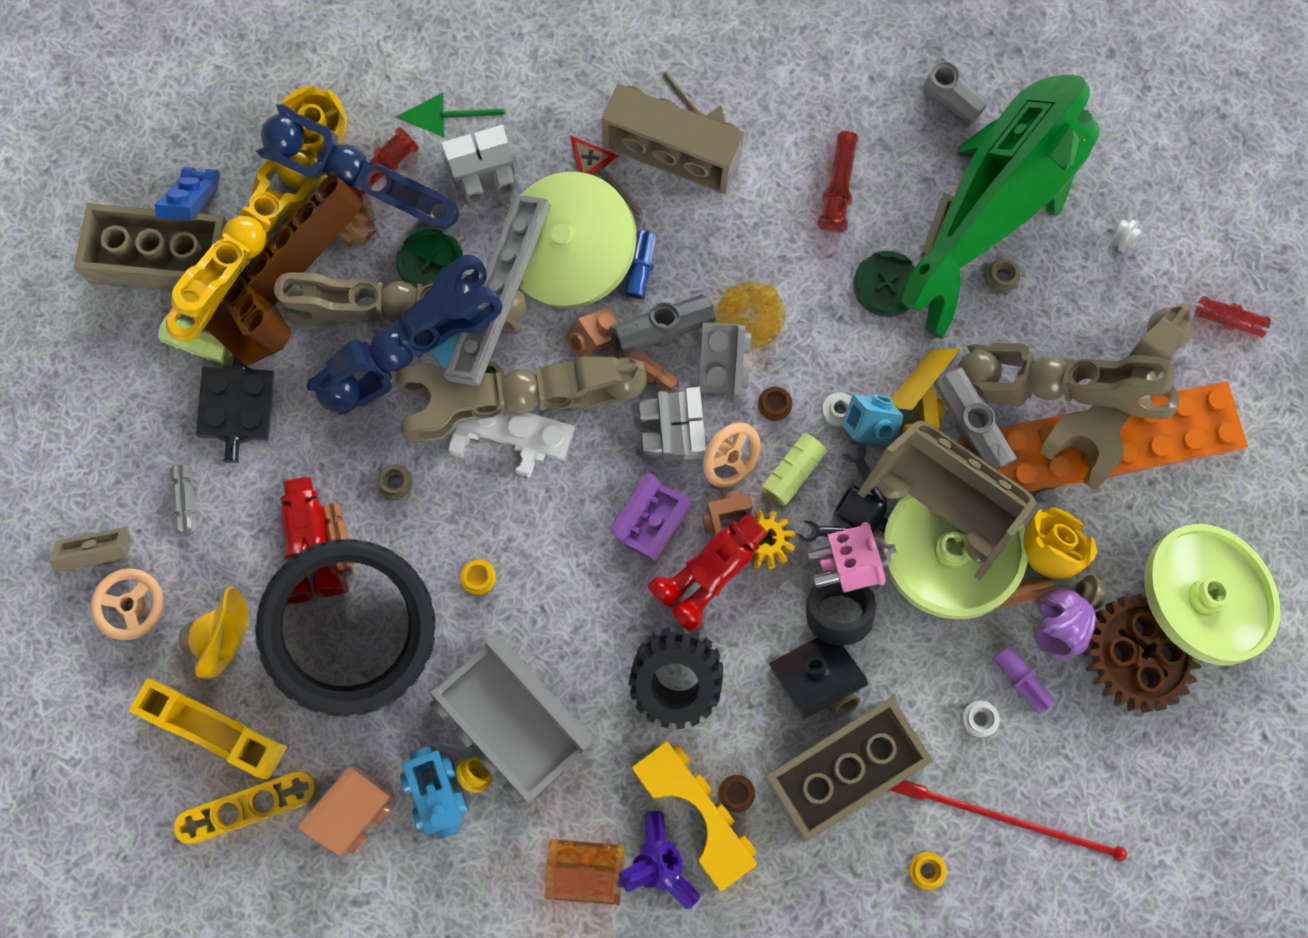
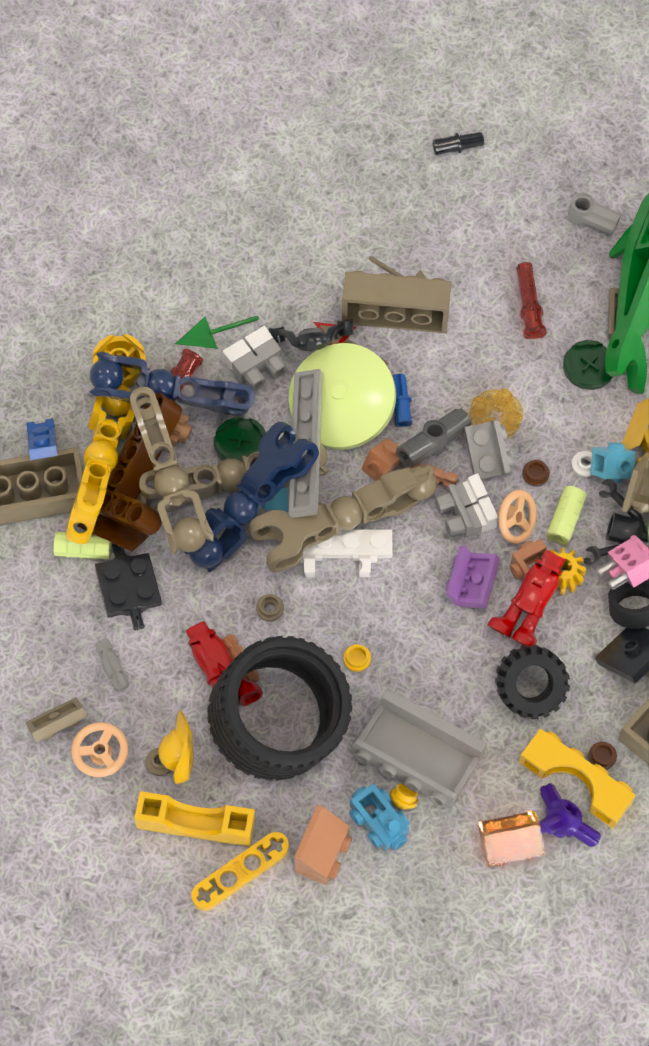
camera: 15 degrees left, 10 degrees down
(306, 295) = (170, 480): none -> dark tan piece
(557, 157) = (312, 338): none -> black piece

